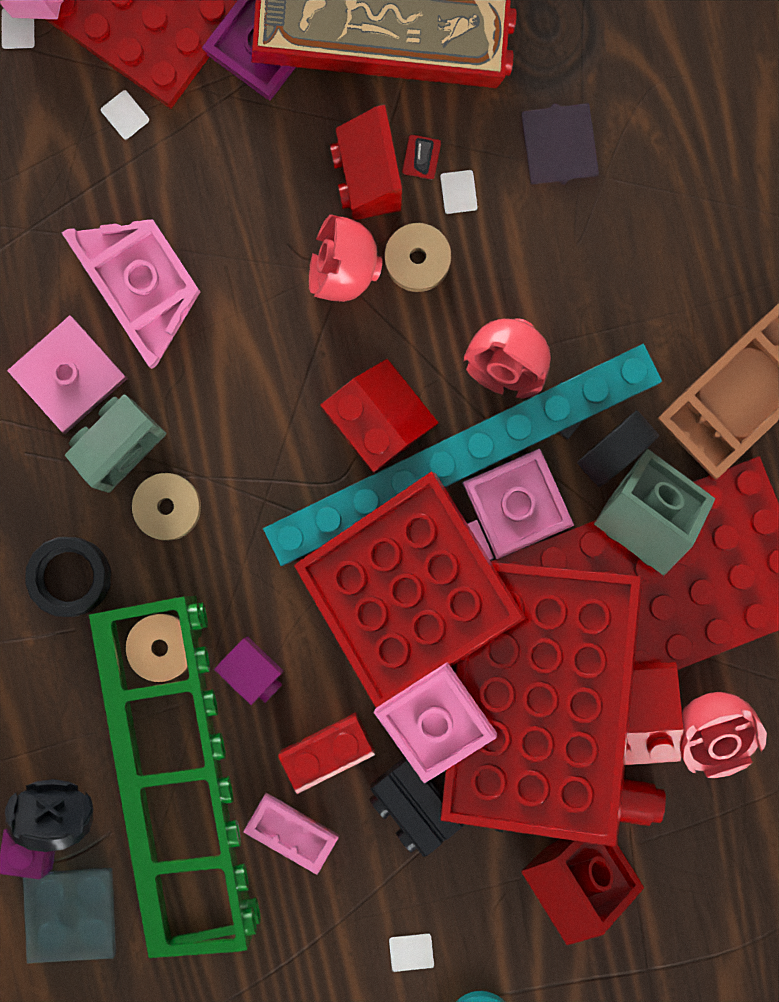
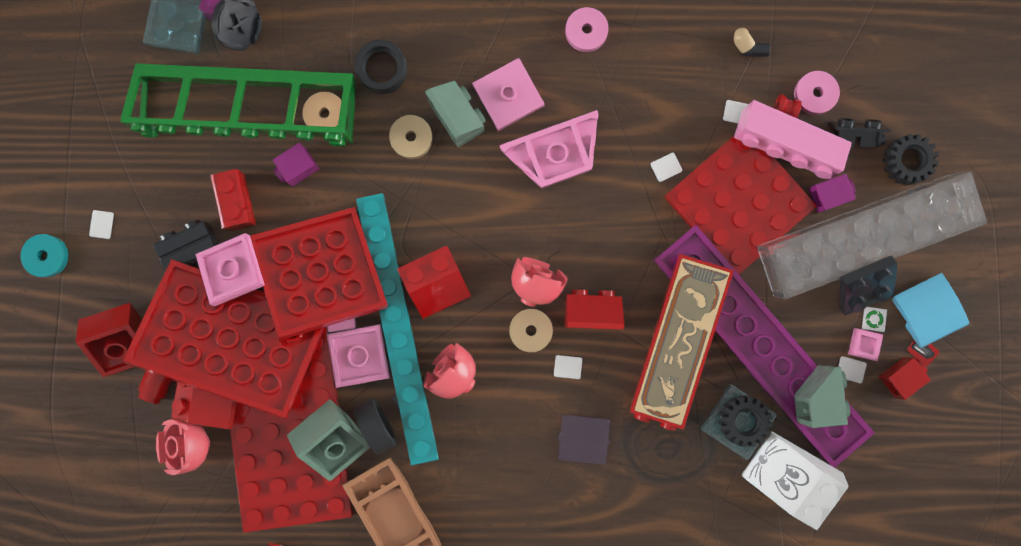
camera: 105 degrees right, 0 degrees up
(291, 833) = (190, 167): bright pink plate -> none
(421, 157) = (596, 348): sticker -> none

